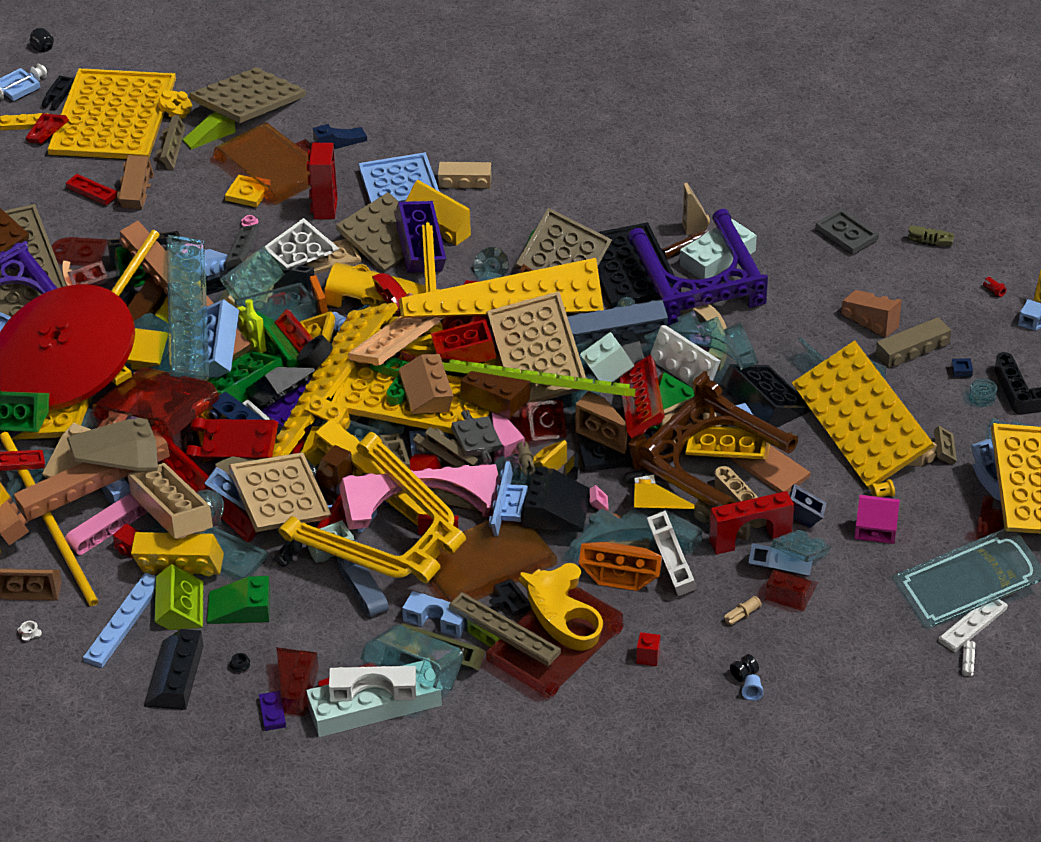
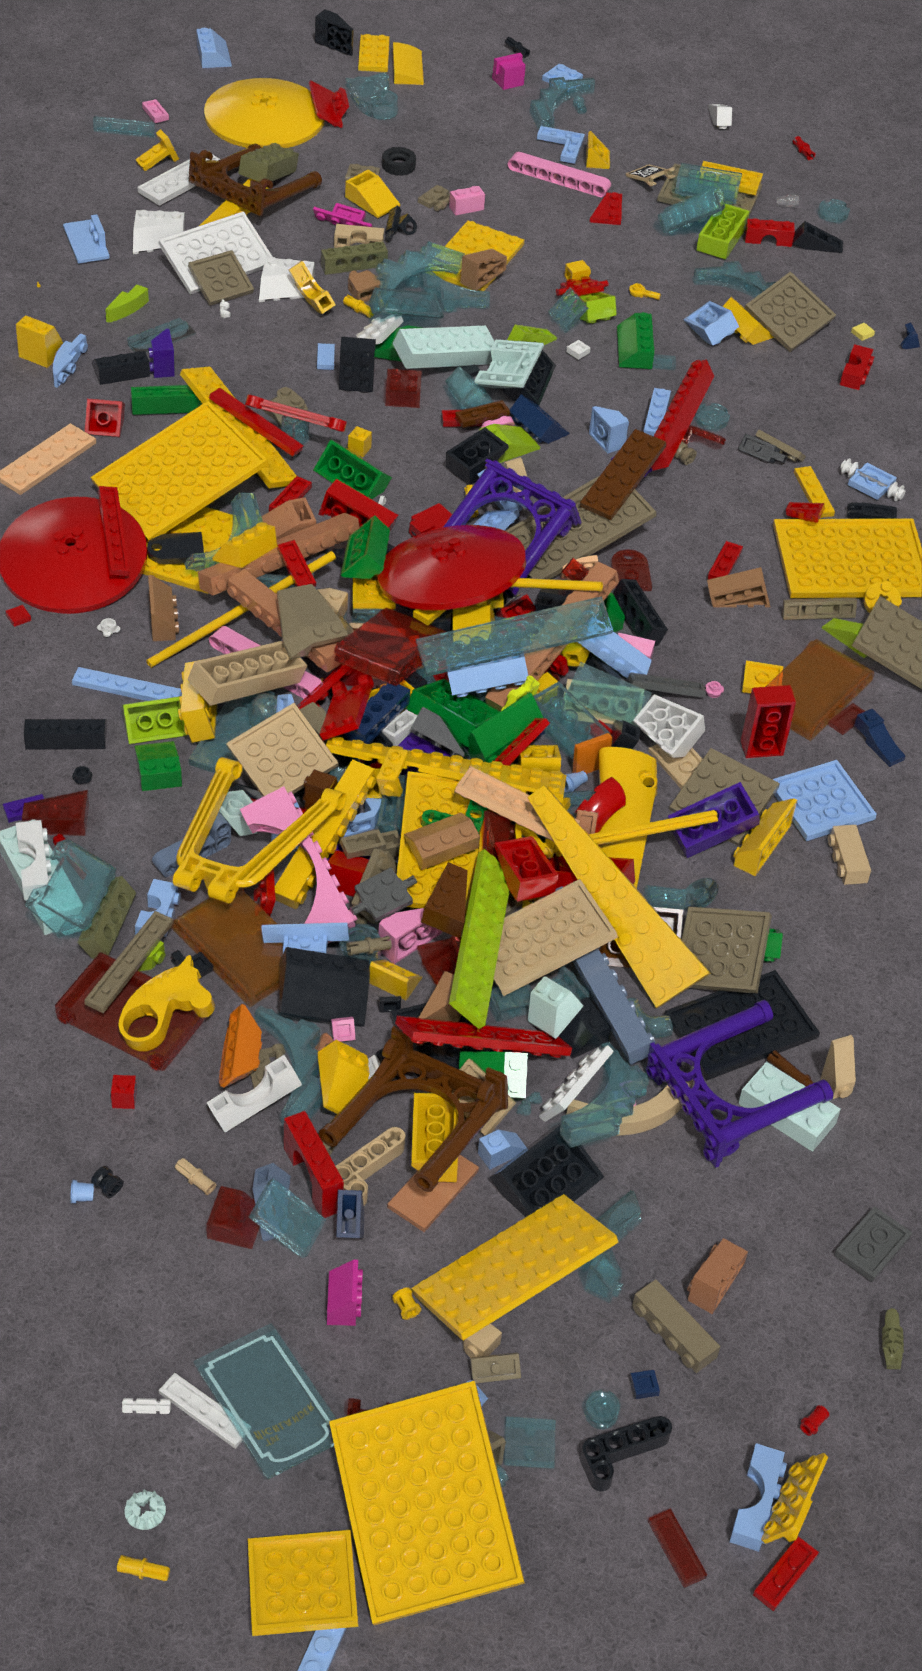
camera: 75 degrees right, 5 degrees up
(314, 352) = (487, 751): black tyre -> none

